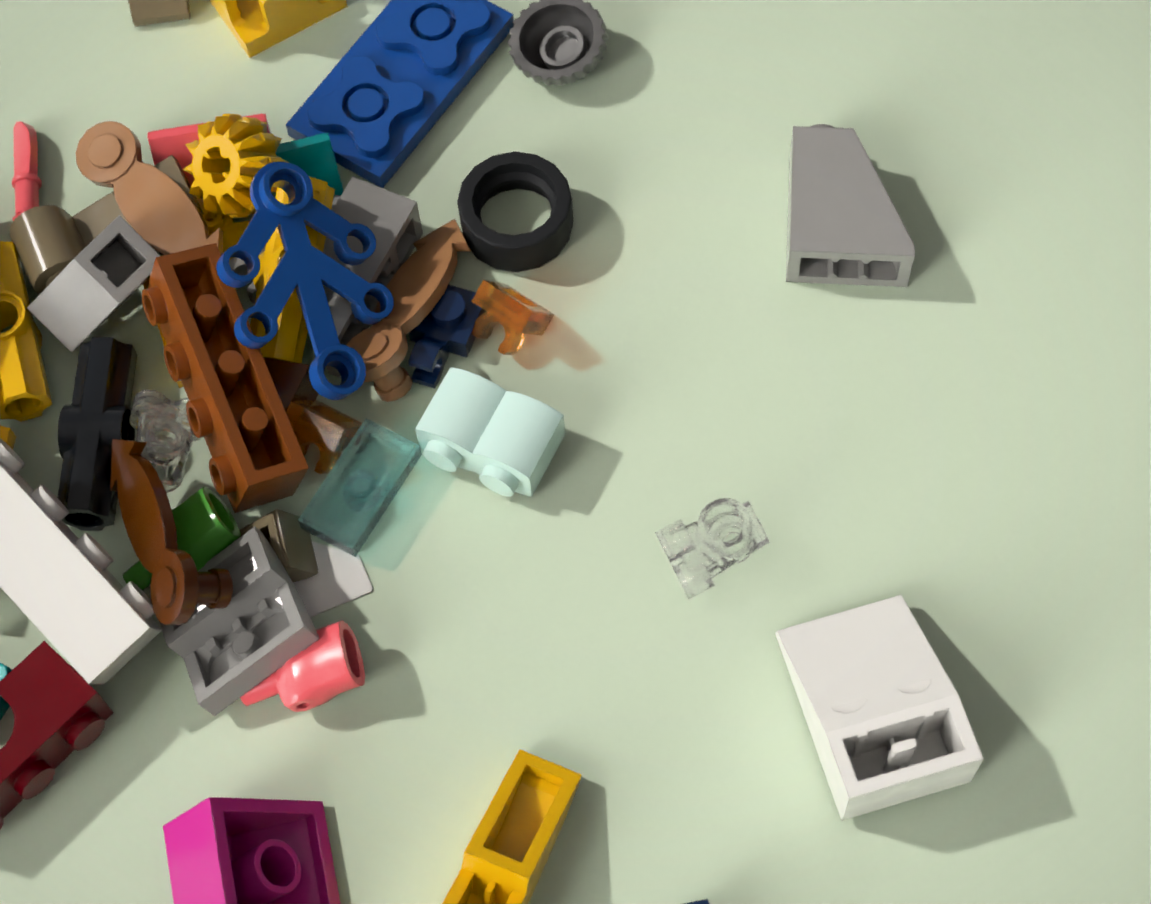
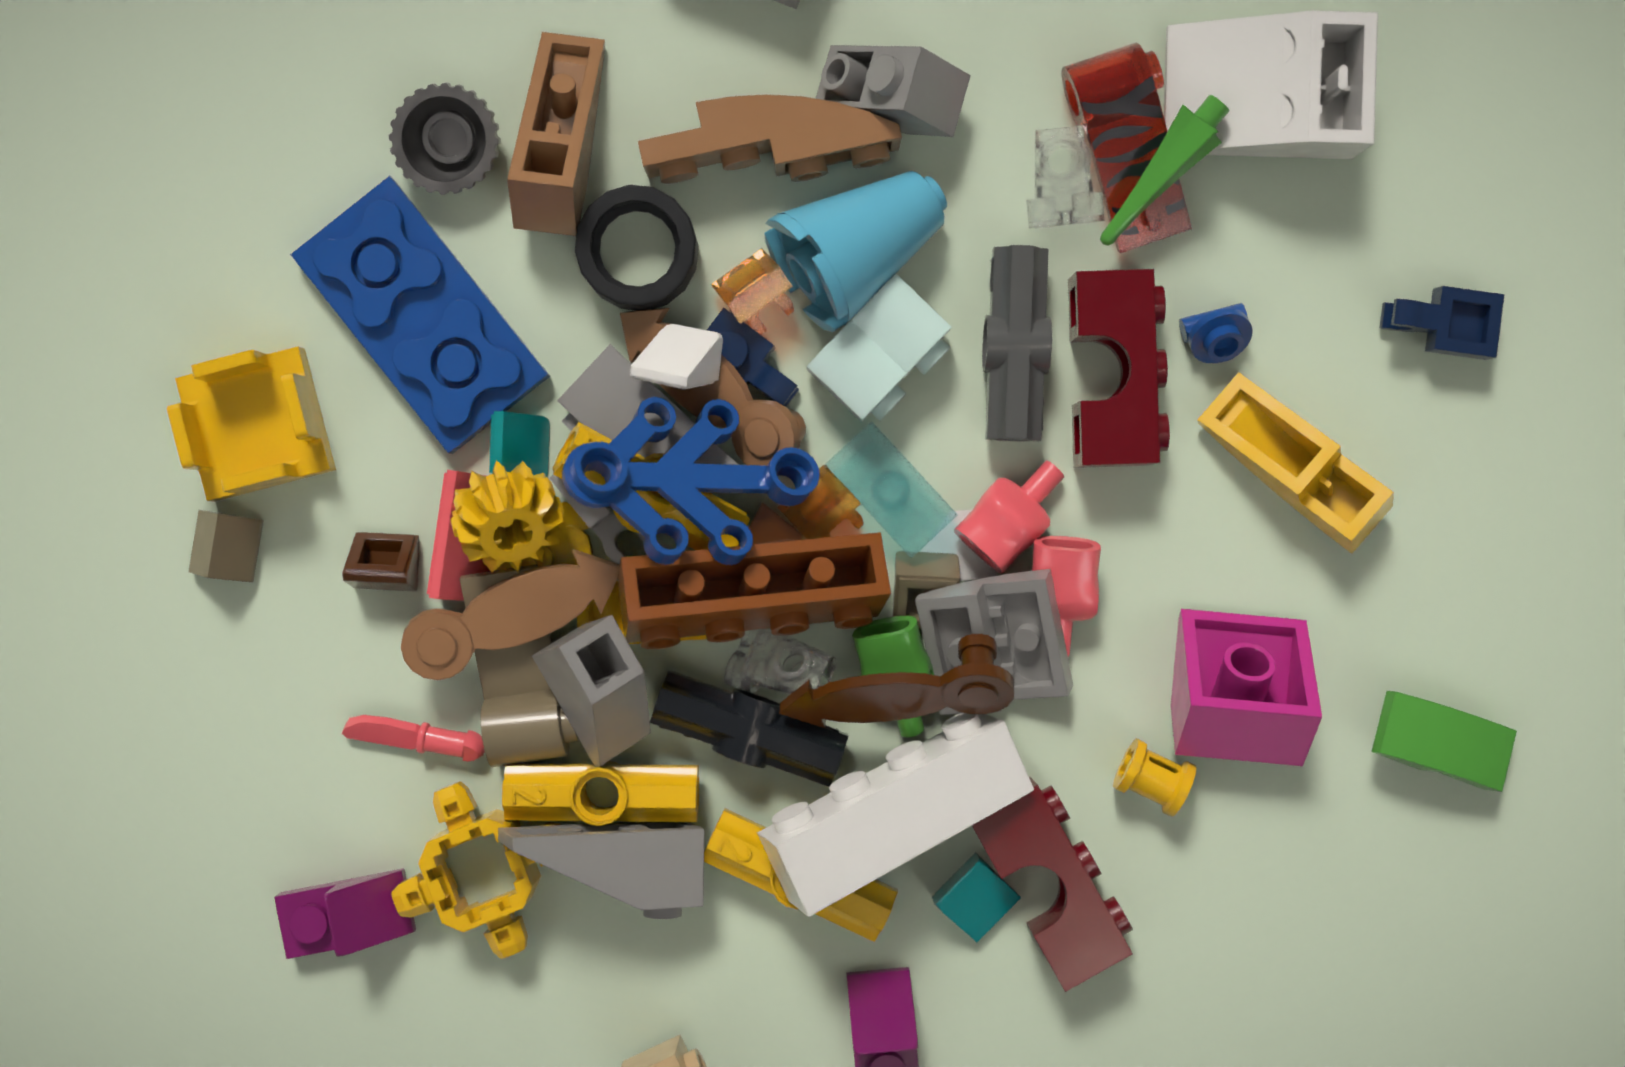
camera: 75 degrees left, 25 degrees up
(137, 821) = (1155, 777): none -> yellow bush
(174, 101) = (383, 562): none -> reddish brown slope
(365, 600) = (1009, 517): none -> coral piece
(420, 257) = (680, 358): none -> white slope
(494, 676) = (1122, 315): none -> dark red arch
(536, 552) = (1016, 343): none -> dark grey piece
(583, 374) = (854, 242): none -> medium azure cone
(591, 118) = (556, 135): none -> medium nougat slope
(614, 742) = (1217, 334): none -> blue plate
(658, 281) = (797, 131): none -> medium nougat slope
(739, 369) = (897, 84): none -> light grey slope
(766, 591) = (1124, 127): none -> clear red door
(778, 627) = (1183, 146): none -> bright green piece

